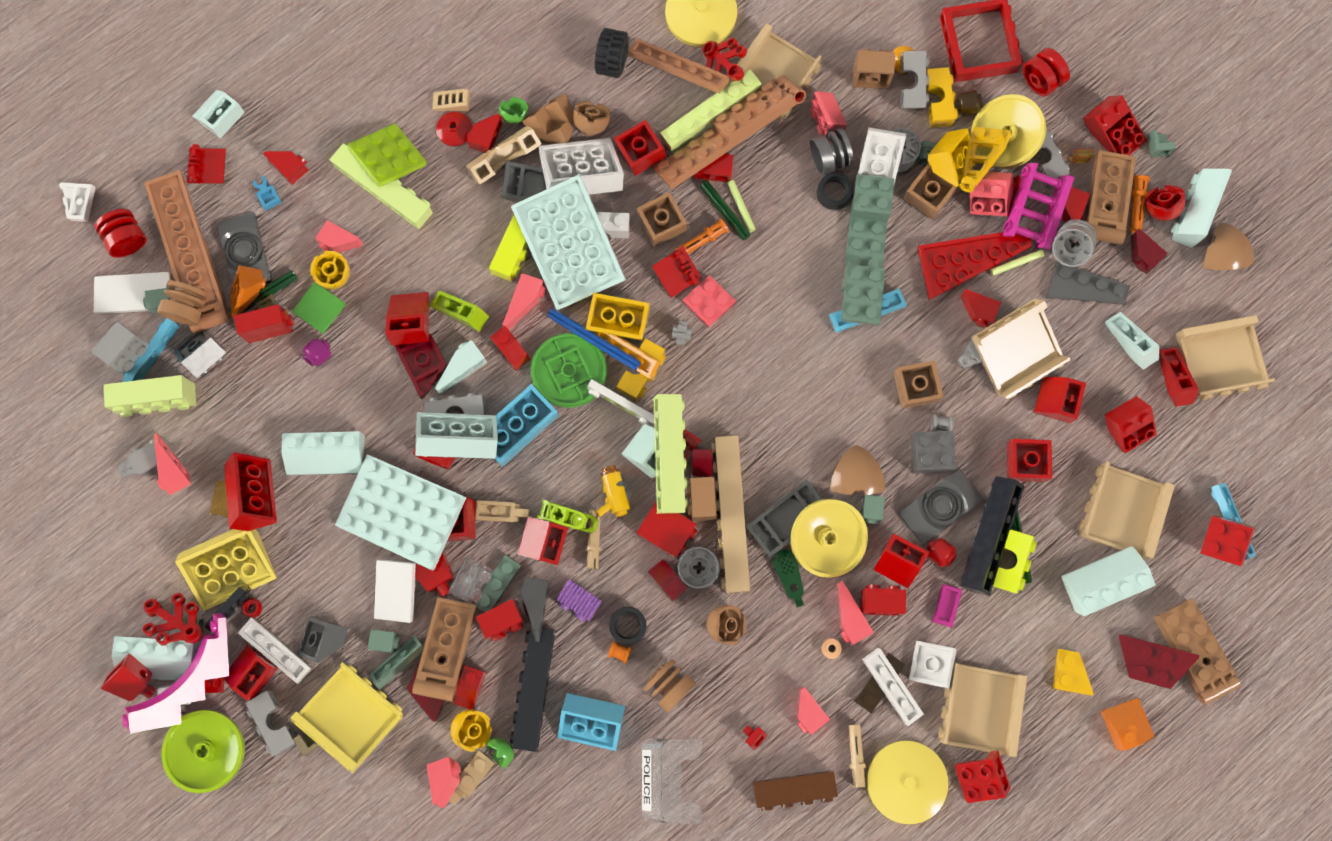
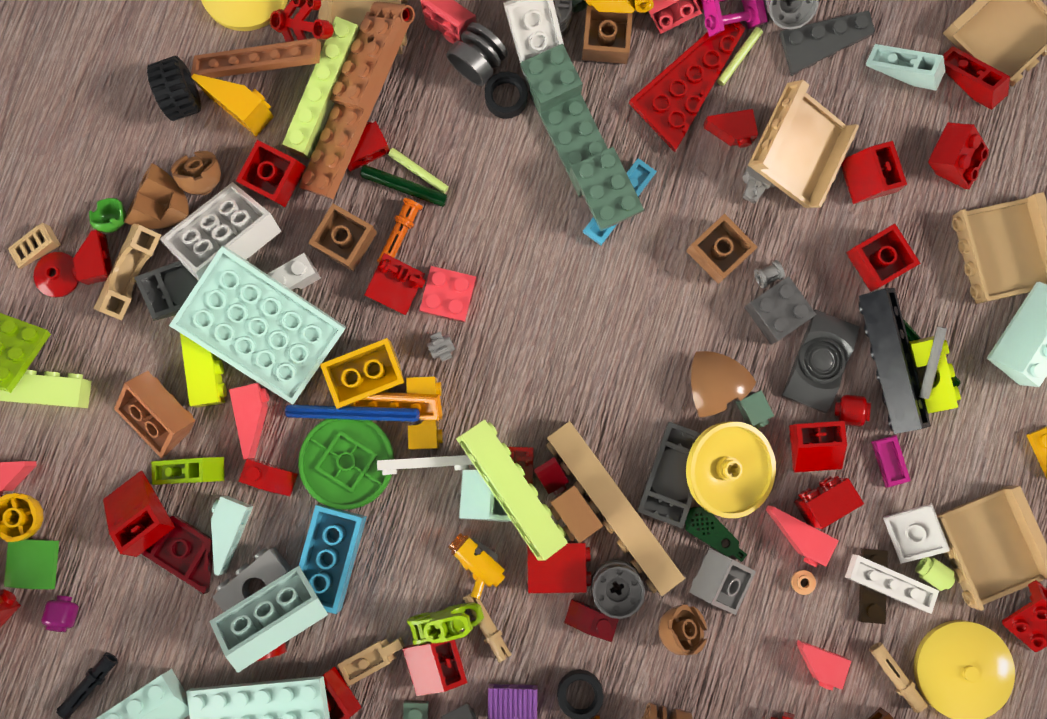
camera: 30 degrees left, 5 degrees up
(312, 407) = (94, 677): none -> black pin
(461, 259) = (154, 413): none -> nougat slope
(648, 87) = (237, 100): none -> yellow slope
(775, 611) = (722, 581): none -> light grey slope
(929, 701) = (935, 573): none -> yellowish green brick
(1016, 550) = (933, 362): none -> light grey bar

